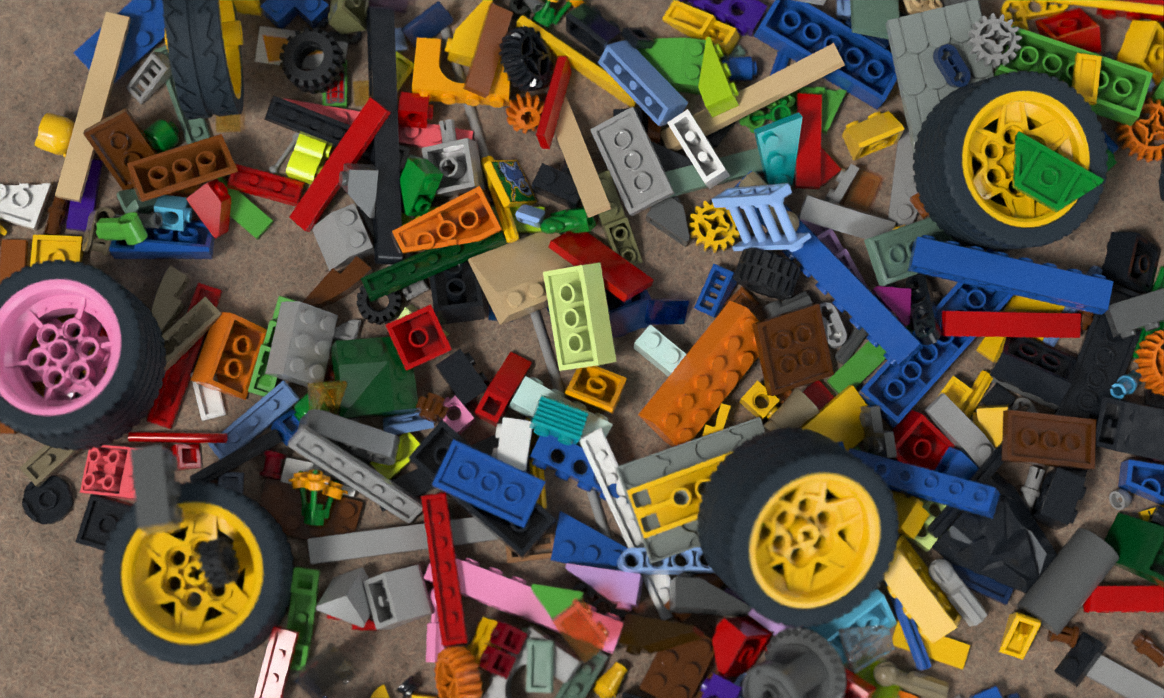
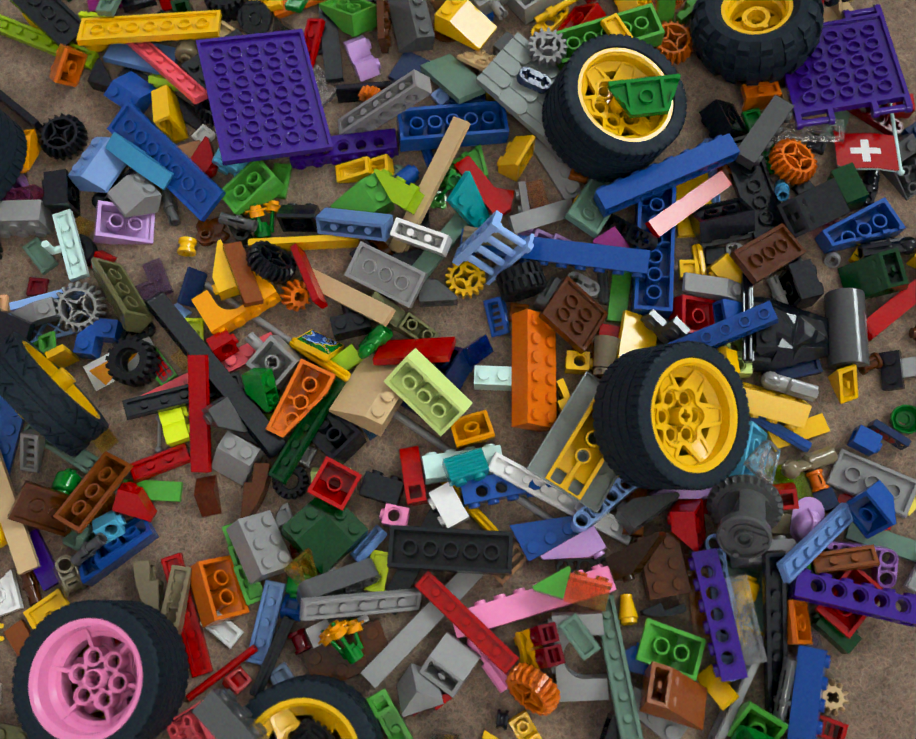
camera: 30 degrees left, 5 degrees down
(125, 228) = (83, 558): bright green piece -> none
(288, 253) = (207, 496): none -> copper slope
(432, 407) = (377, 522): reddish brown gear -> none
(488, 483) = (452, 542): blue tile -> none
(530, 215) = (347, 355): light blue slope -> none
(637, 38) = (330, 201): black tile -> none

